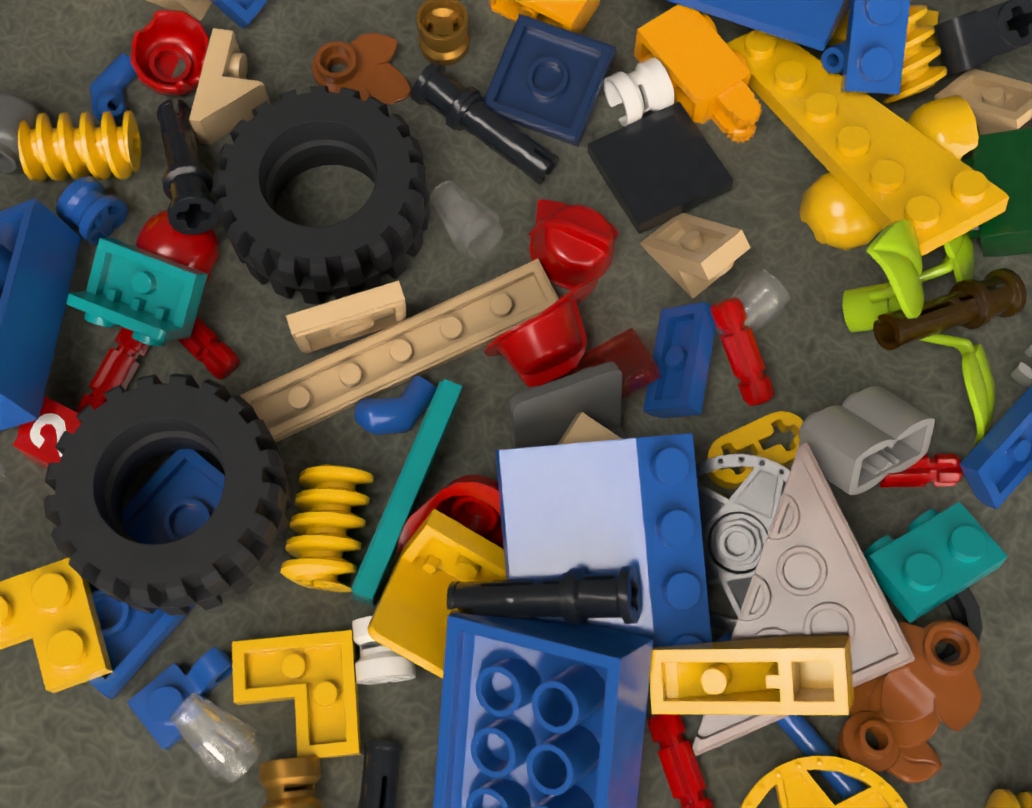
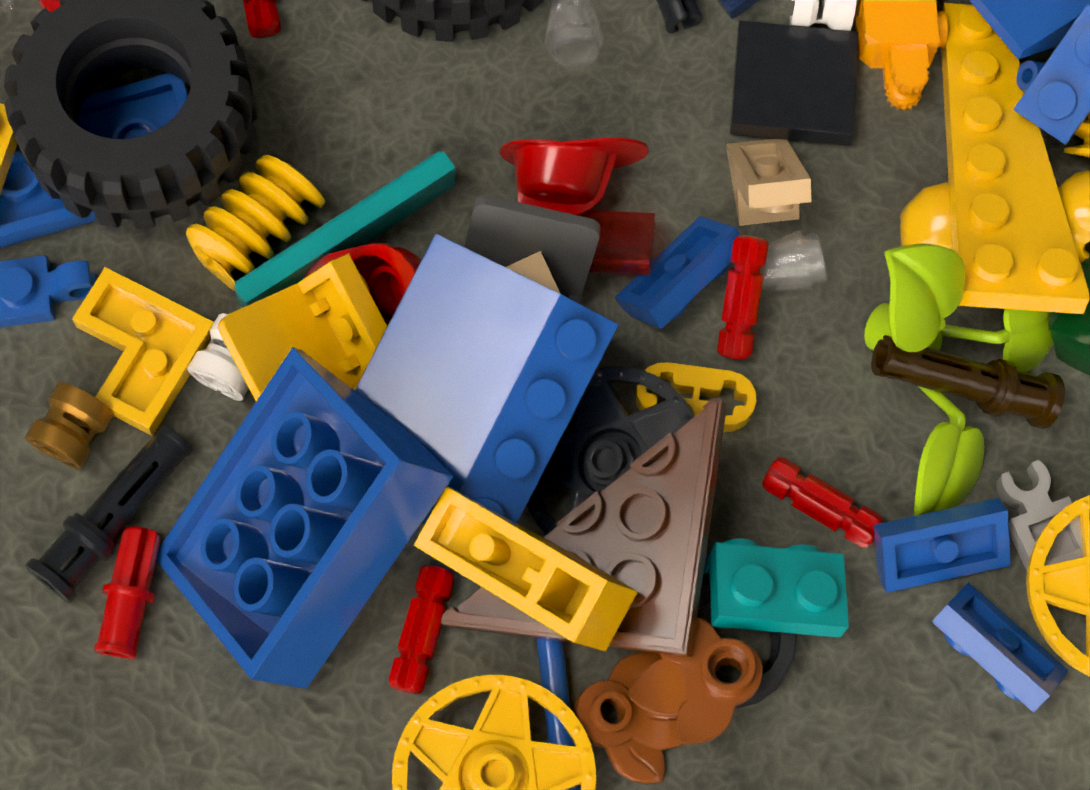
camera: 30 degrees right, 0 degrees up
(217, 737) = (38, 338): clear cone -> none
(348, 318) = (394, 44): tan tile -> none
(395, 414) = (383, 160): blue arm -> none
(401, 351) = (422, 106): tan tile -> none
(571, 242) = (659, 105): red piece -> none
(572, 596) = (410, 397): black pin -> none
(866, 438) = (796, 444): light grey brick -> none

